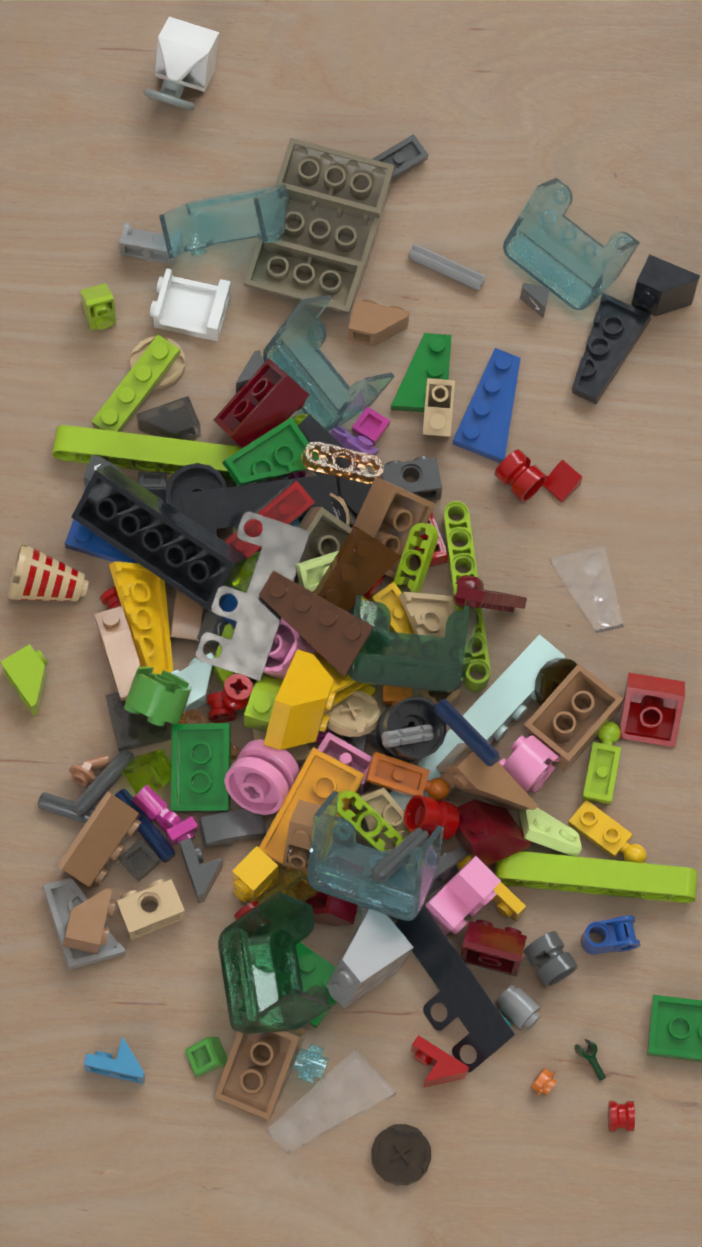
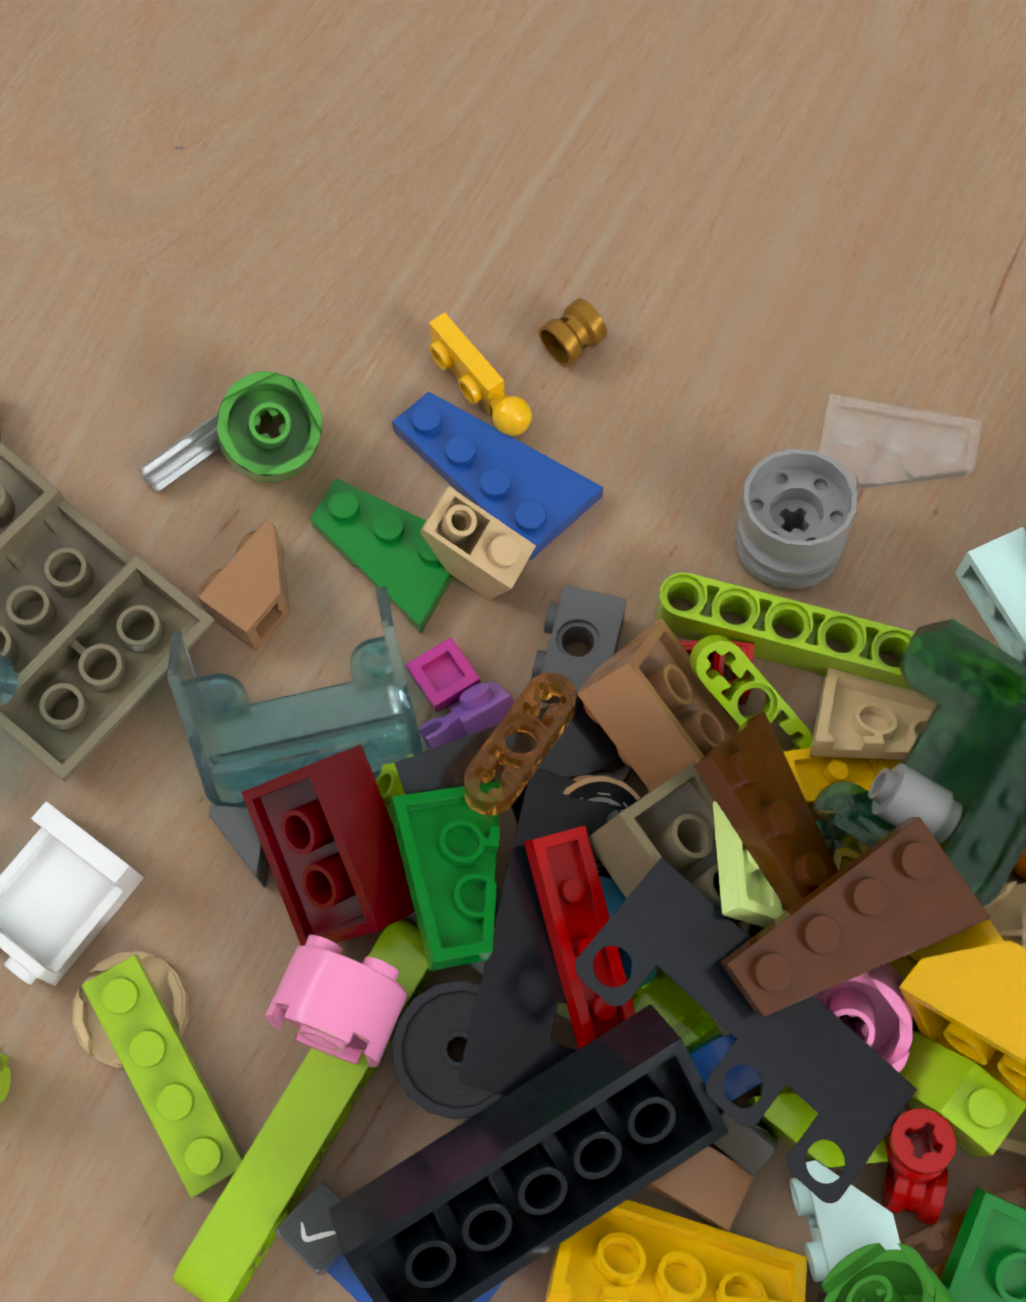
camera: 60 degrees left, 0 degrees up
(154, 482) = (384, 1129): dark grey slope -> none
(171, 420) = (259, 1049): clear smoke slope -> none
(194, 434) = (338, 1001): none -> bright pink brick
(389, 637) = (908, 794): none -> light grey brick
(462, 276) = (278, 400): none -> bright green brick
(472, 593) = (893, 594): dark red plate -> none
(516, 471) = (653, 468): red wheel -> none
(525, 536) = (795, 518): none -> light grey wheel
(535, 297) = (336, 326): dark grey slope -> none
(535, 378) = (476, 377): none -> yellow plate
(561, 252) = (283, 256): clear light blue windscreen -> none
(563, 481) = (677, 415): red slope -> none
(587, 412) = (574, 331): none -> pearl gold wheel
(612, 338) = (468, 258): black wing -> none
(664, 287) = (411, 138): black slope -> none

